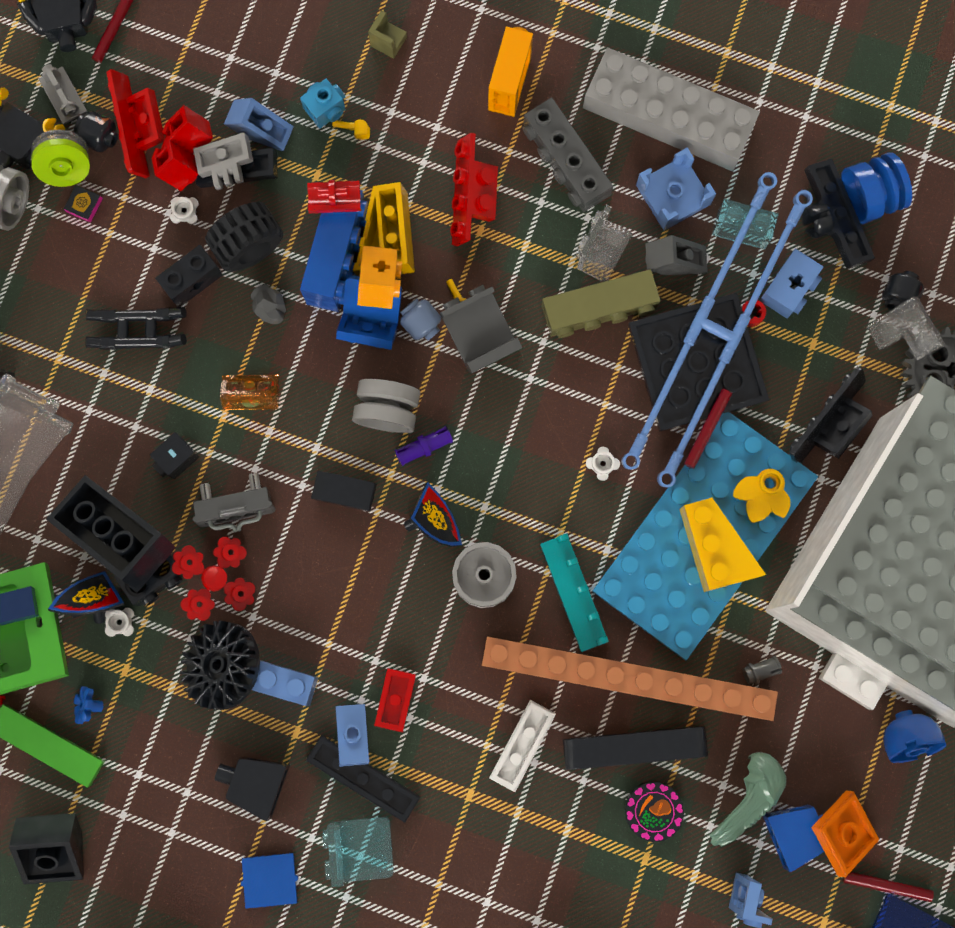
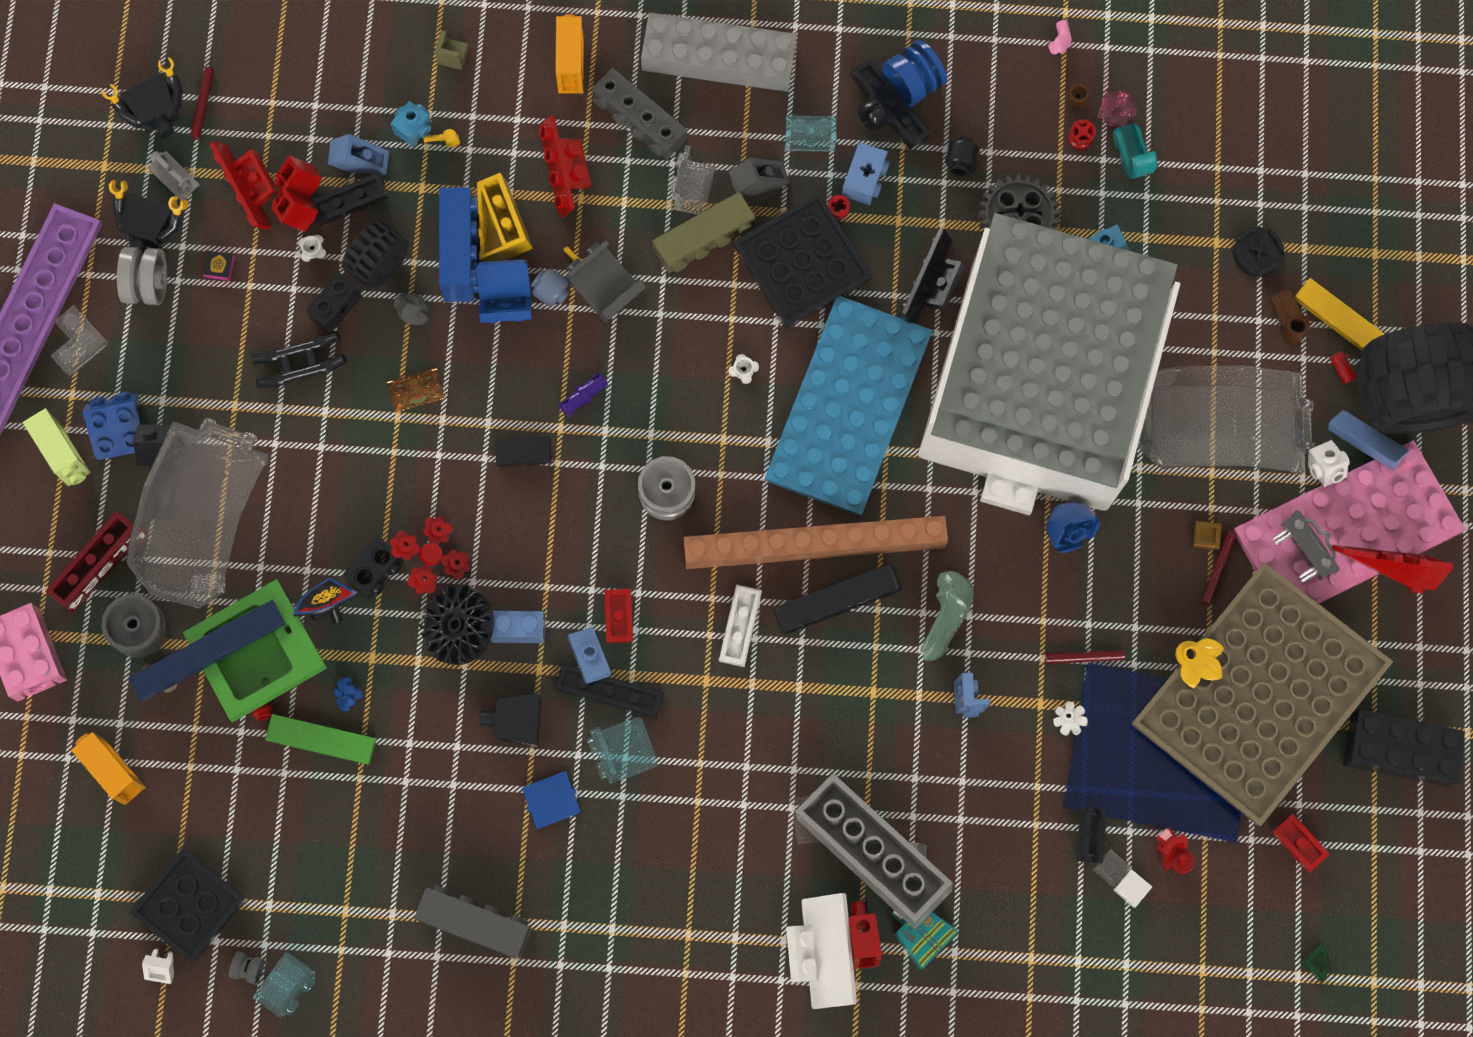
camera: 20 degrees left, 5 degrees down
(48, 848) = (349, 824): black slope -> none
(60, 158) = (190, 229): lime piece -> none
(97, 131) = (214, 199): black head -> none
(111, 533) = (330, 536): black brick -> none
(113, 616) = (349, 612): white plate -> none
(173, 456) = (364, 461): black brick -> none
(224, 159) = (337, 193): light grey hinge -> none
(233, 506) = (435, 488): dark grey piece -> none
(334, 196) = (448, 197): red hips -> none
(378, 277) = (505, 256): light orange brick -> none
(386, 405) = (541, 366): light grey wheel -> none
(434, 518) = (609, 452): shield -> none
(574, 592) = (748, 484): teal hinge -> none
(654, 811) = (869, 649): tile -> none
(674, 190) = (742, 120): medium blue panel -> none
(707, 429) = (826, 314): dark red bar -> none
(716, 547) = (860, 409): yellow wedge -> none
(732, 337) = (795, 224): medium blue bar -> none
(756, 672) = (929, 505): dark grey pin -> none
(760, 499) = (886, 360): yellow plate -> none
(793, 835) = (997, 631): blue torso -> none
(845, 833) = (1035, 619): orange tile -> none
(907, 322) = (970, 180): clear plate -> none

